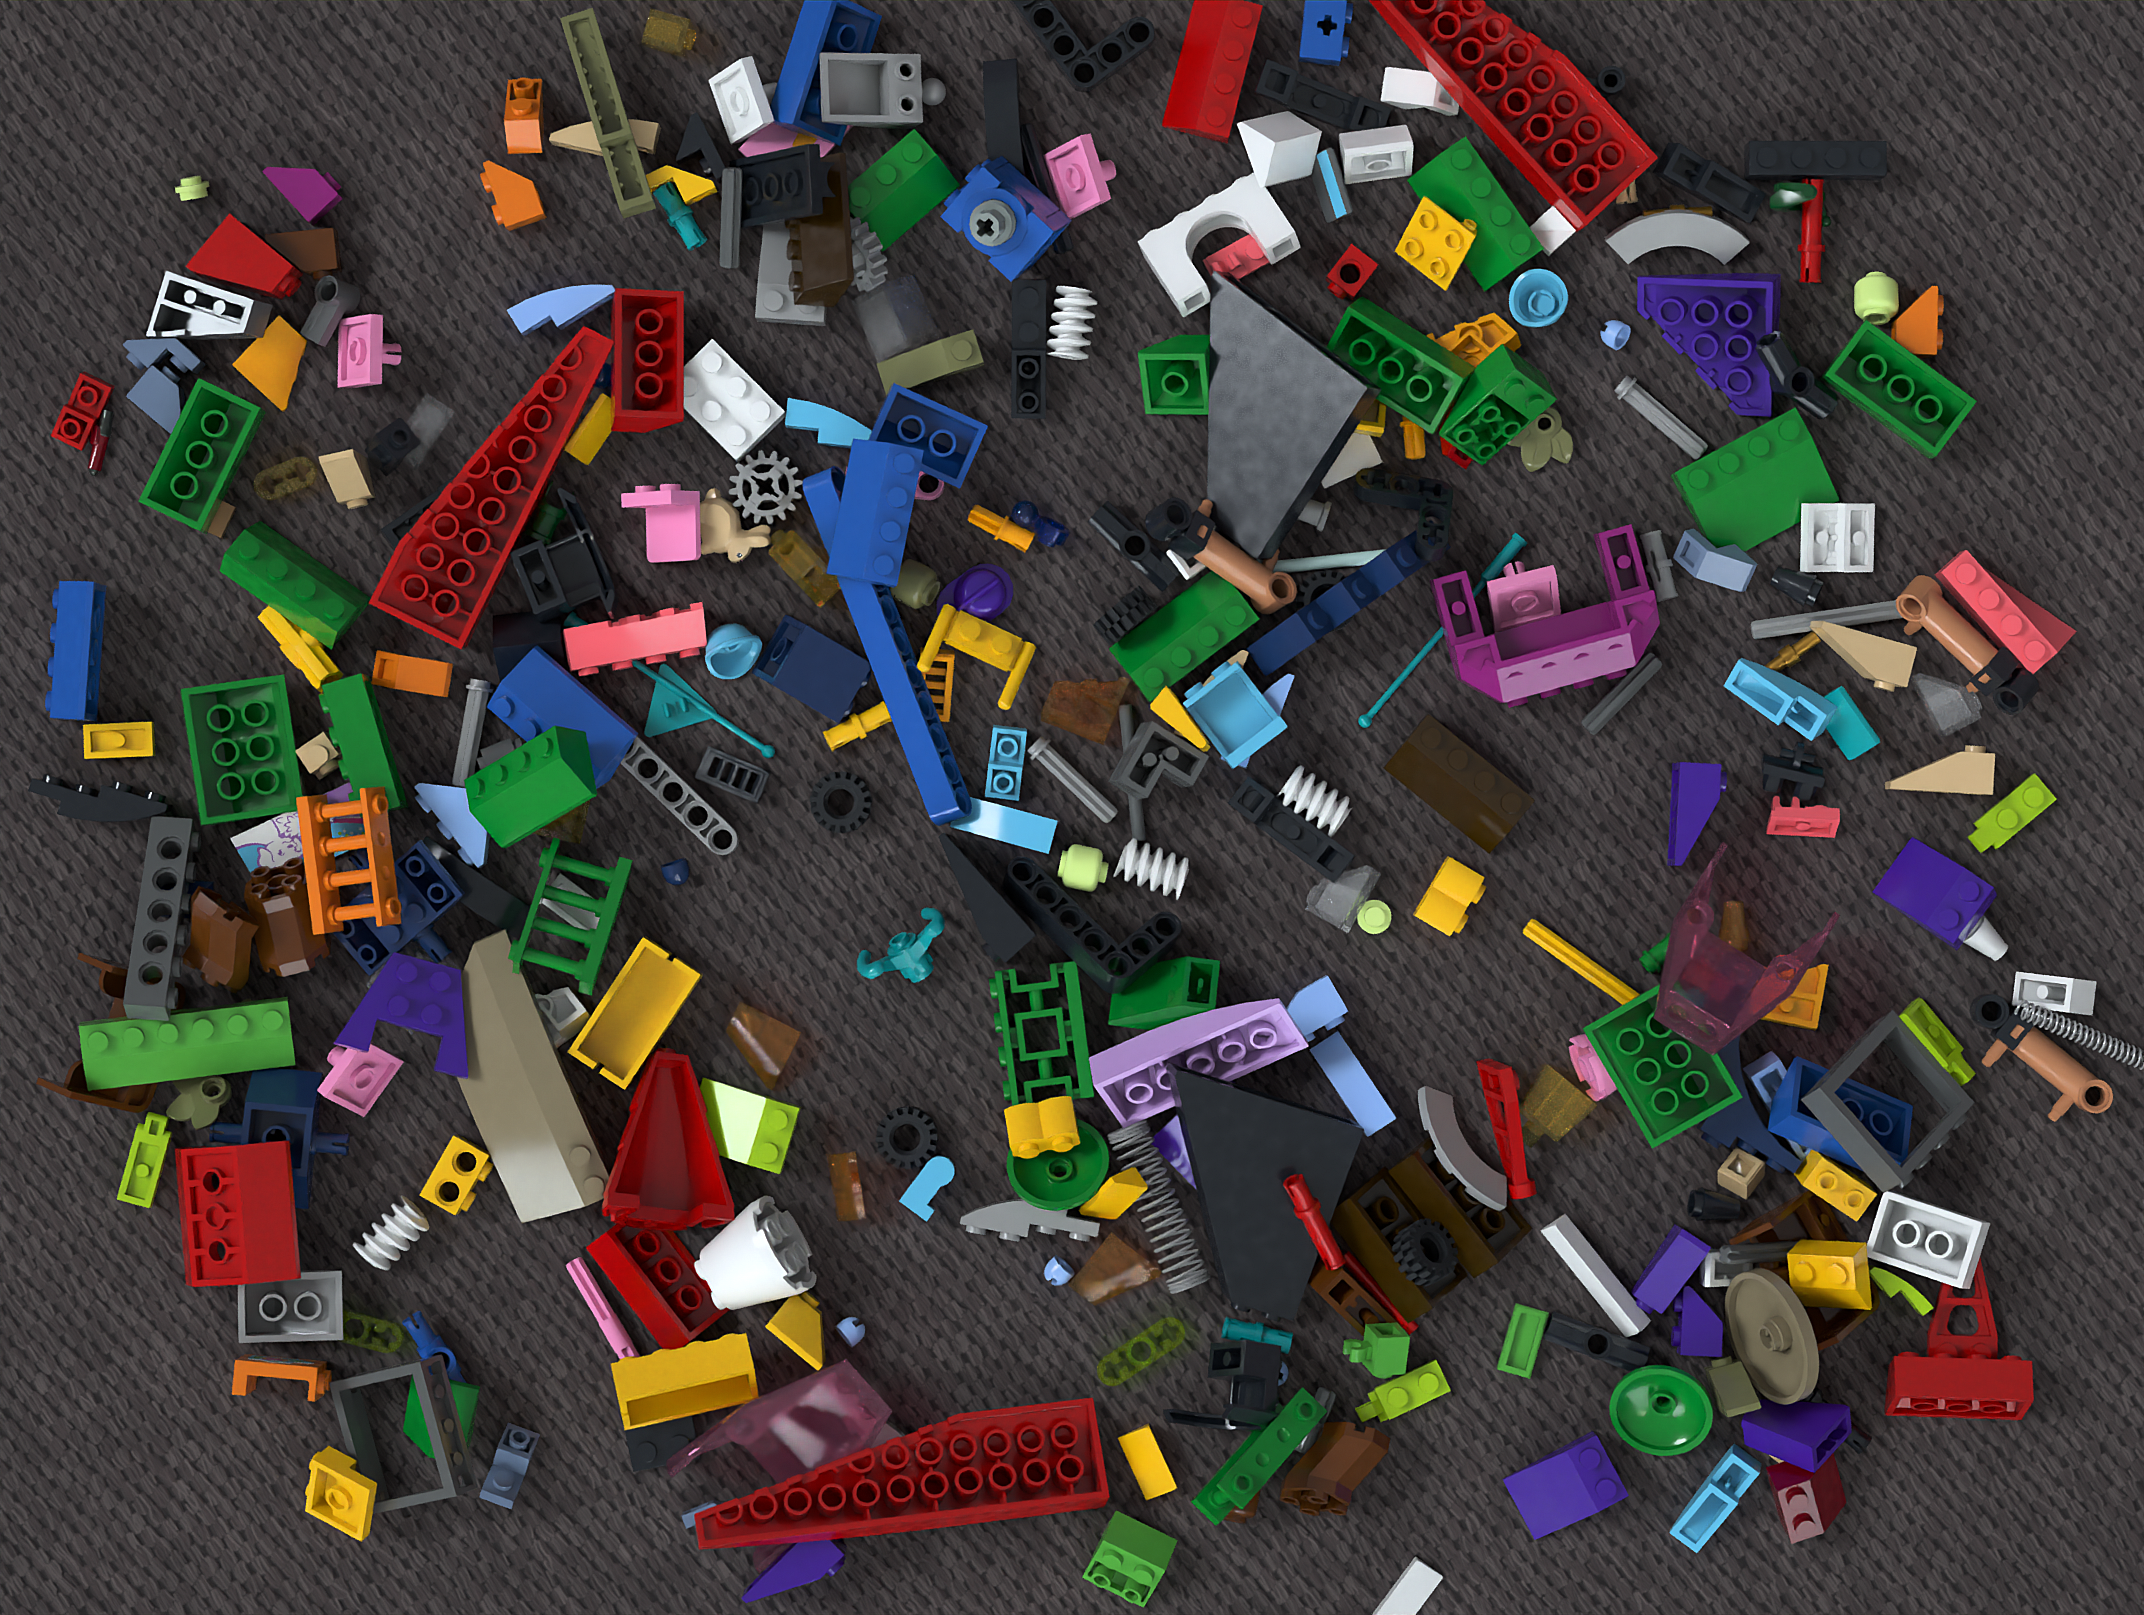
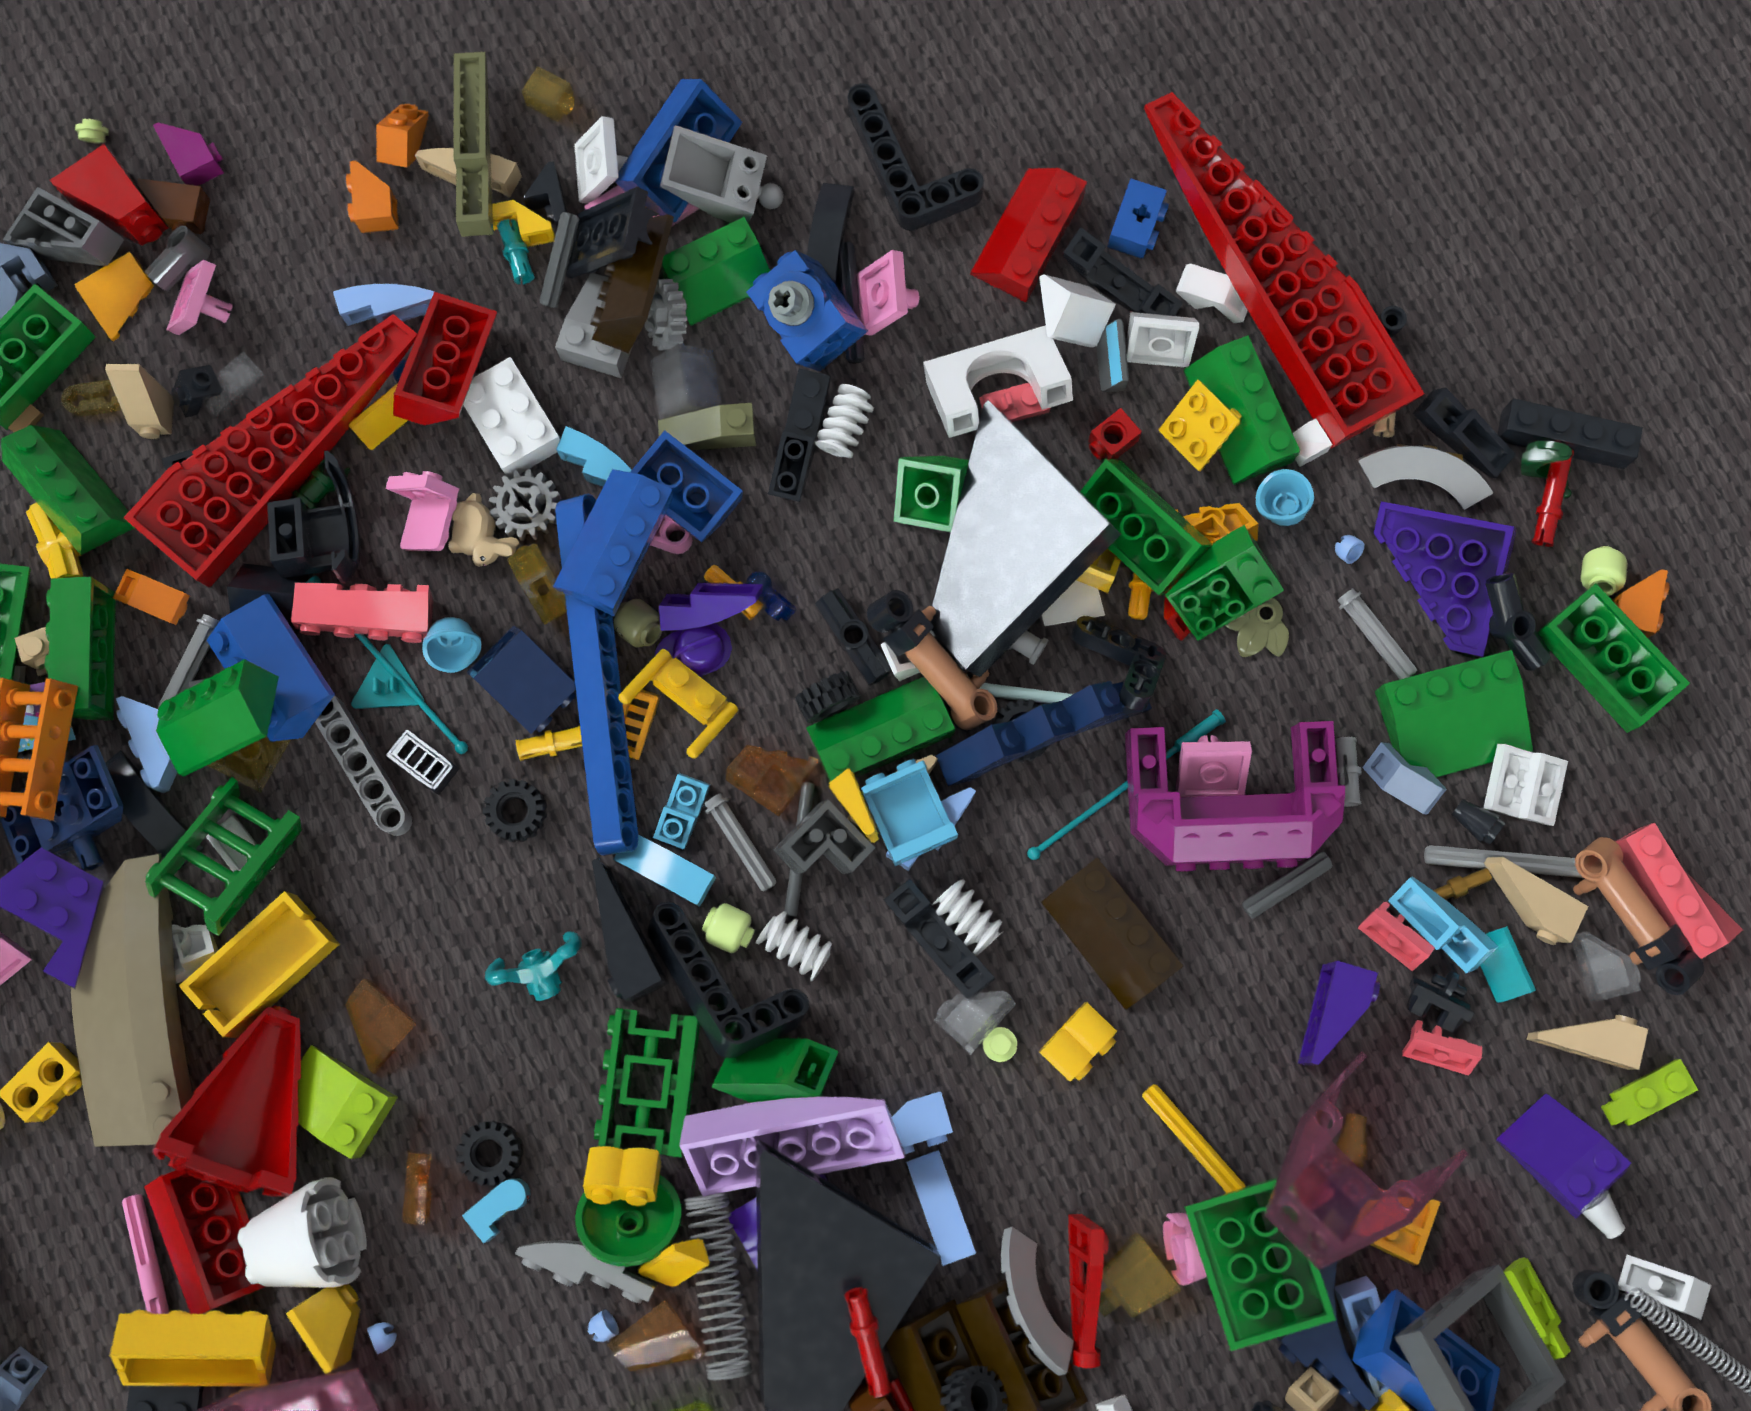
camera: 20 degrees right, 10 degrees down
(676, 871) = (341, 840): dark blue hinge -> none
(981, 550) = (706, 605): none -> dark purple slope
(1655, 957) = (1272, 1151): green pin -> none
(1736, 721) = (1395, 937): none -> coral plate

